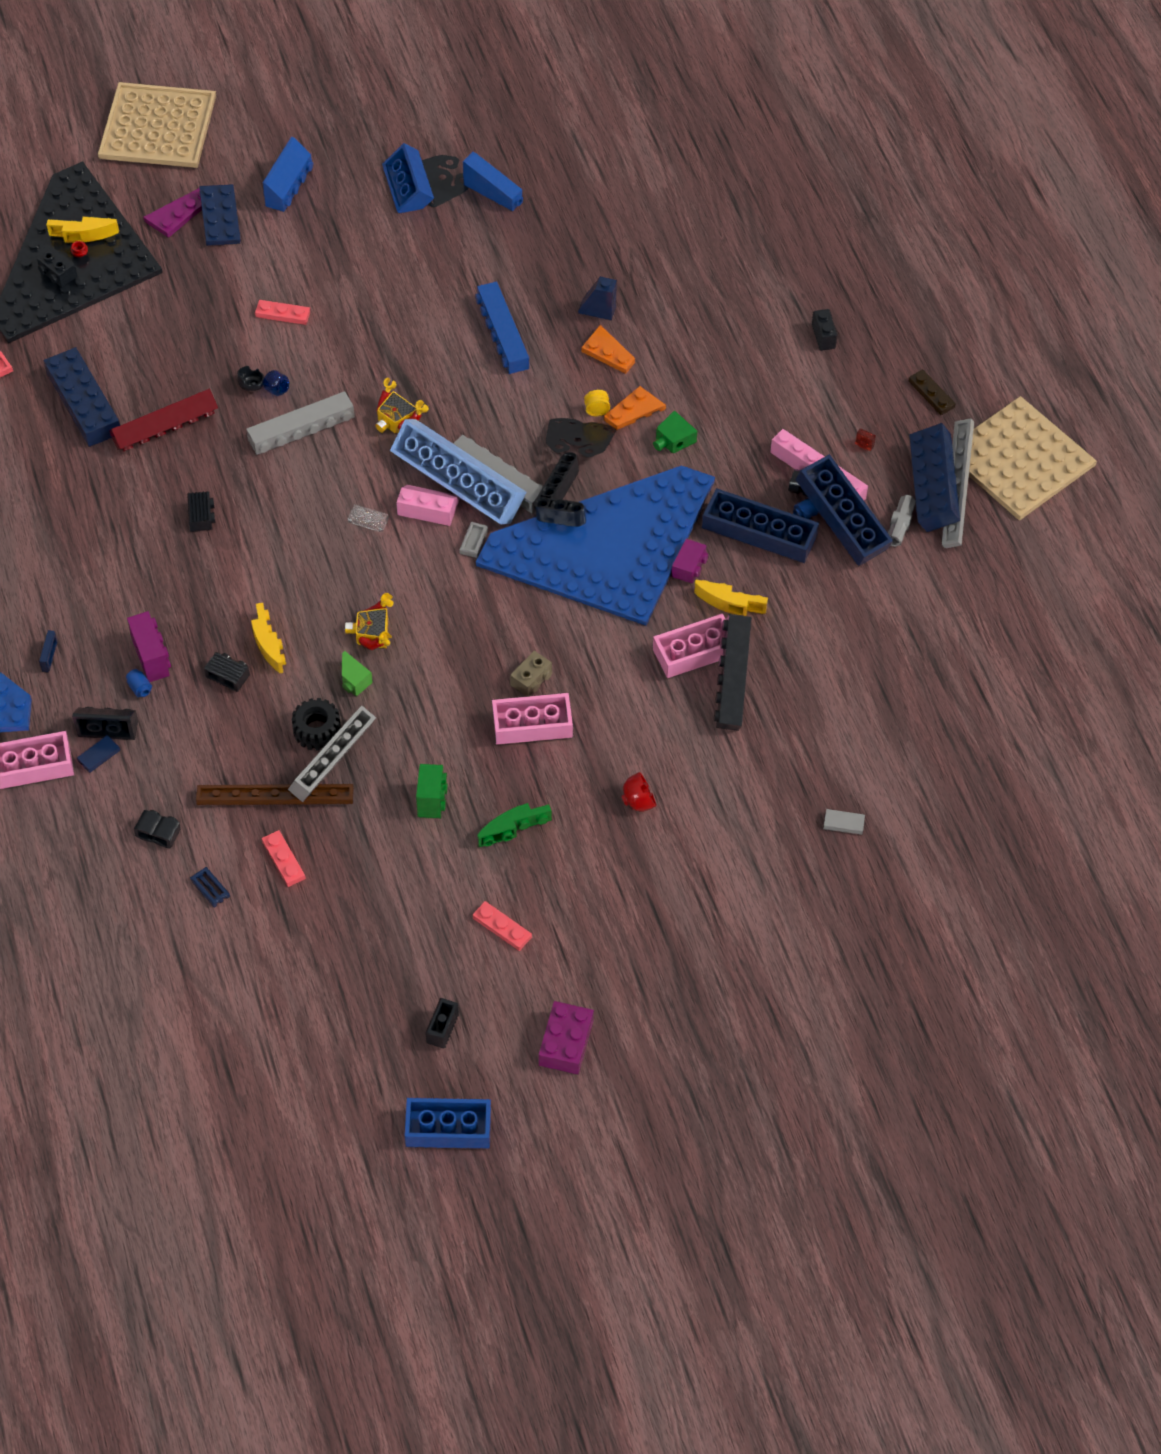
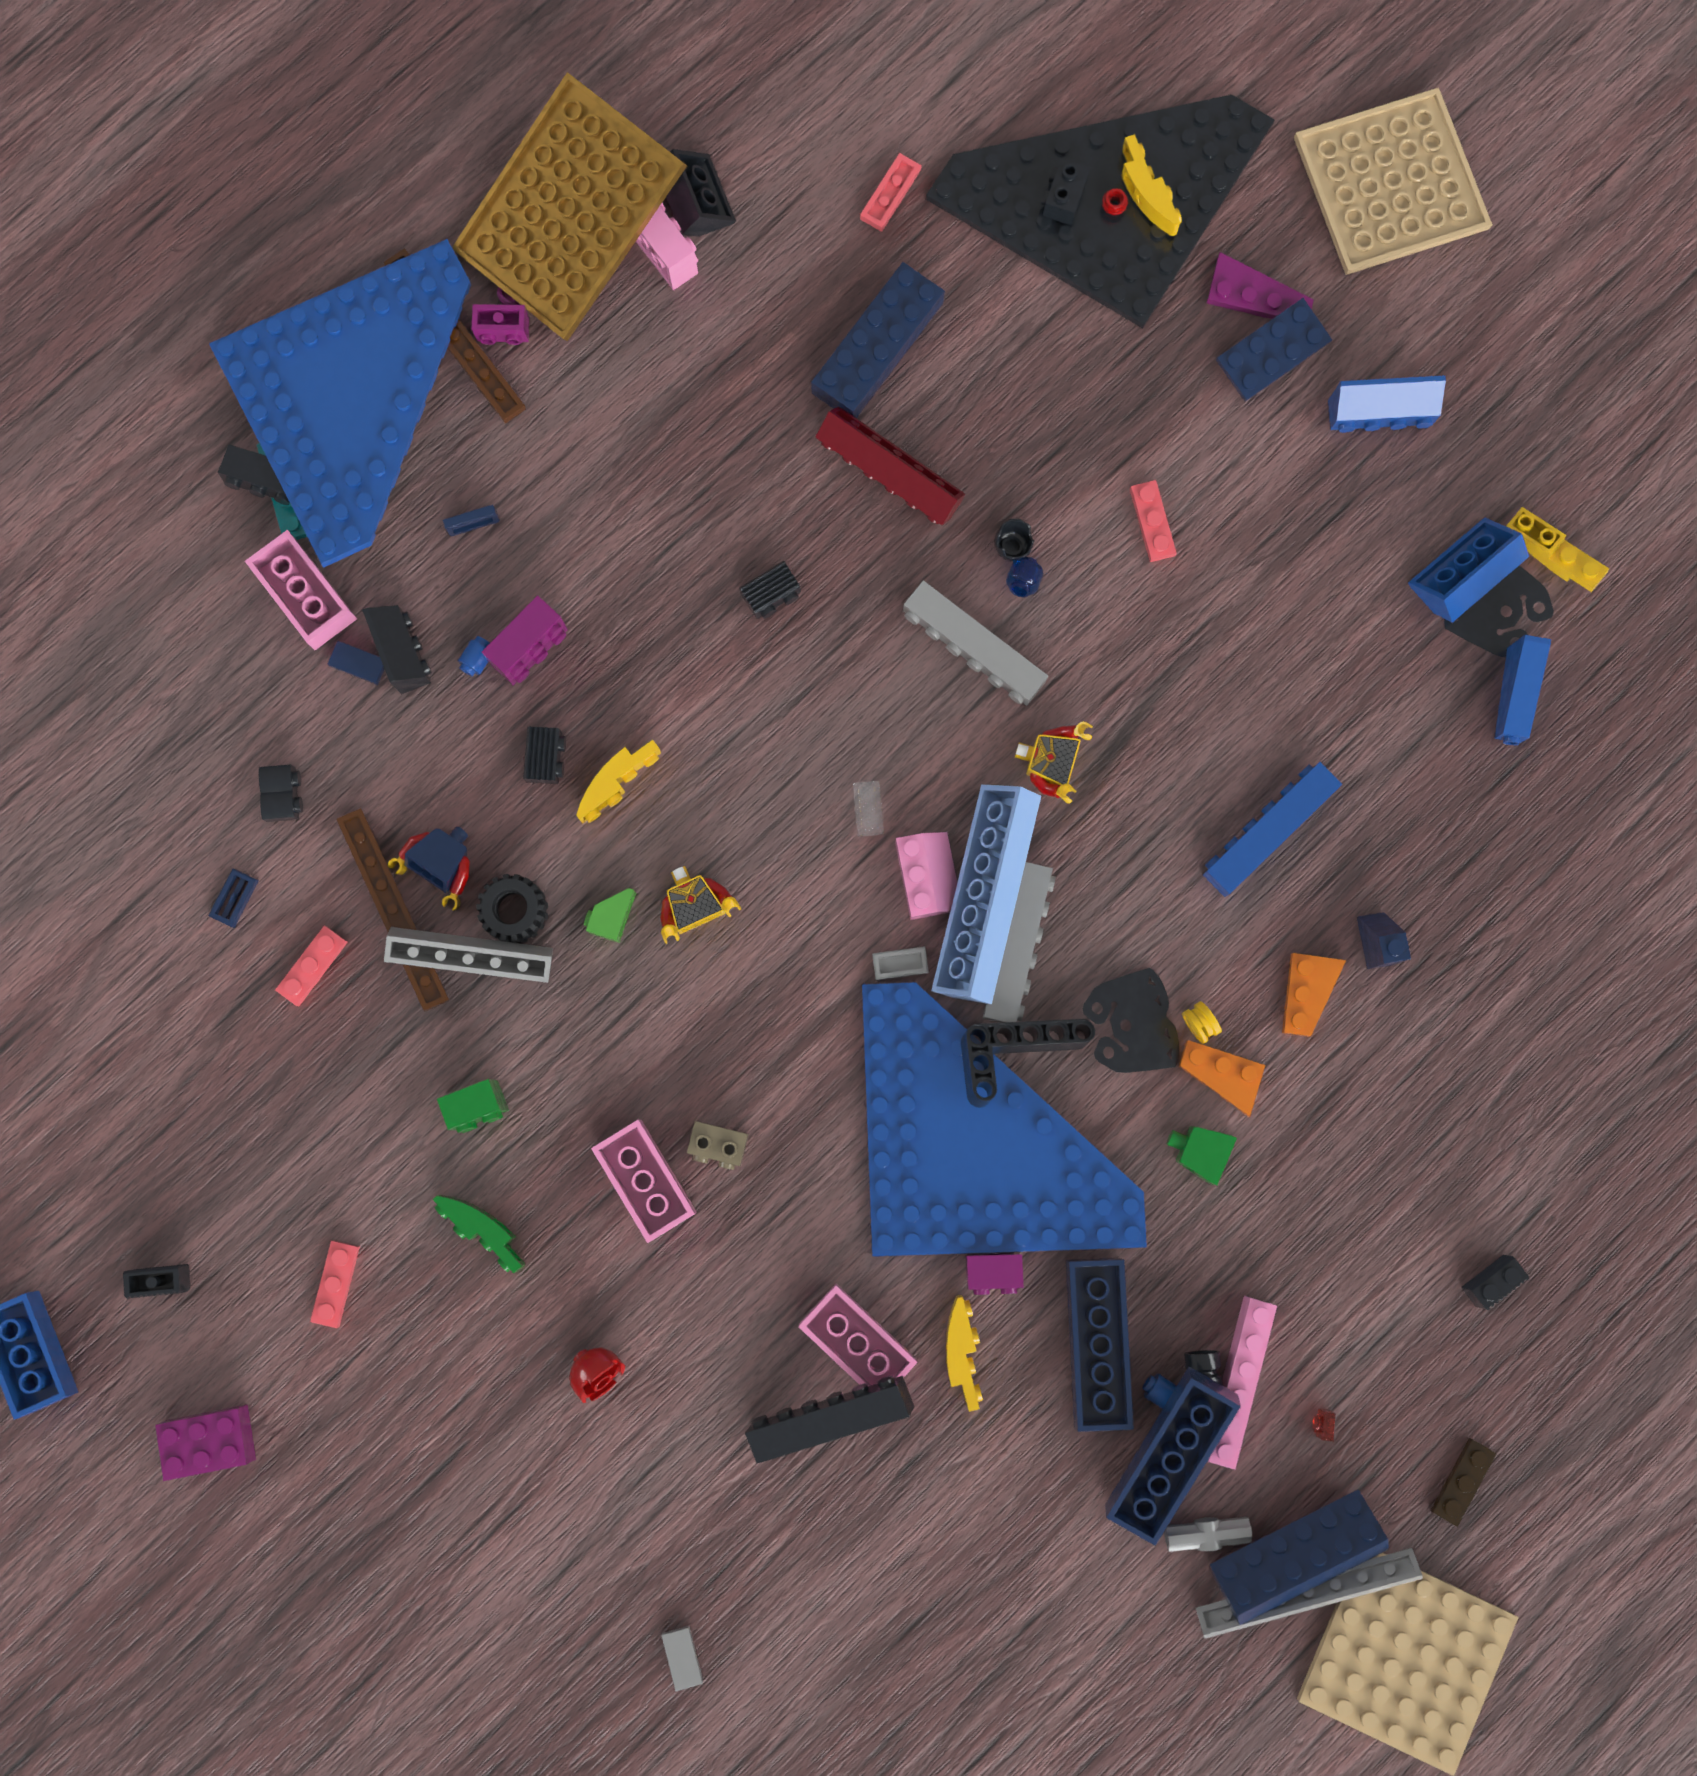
camera: 65 degrees right, 25 degrees up
(260, 751) = (438, 860): none -> dark blue torso
(425, 139) = (1556, 553): none -> yellow slope

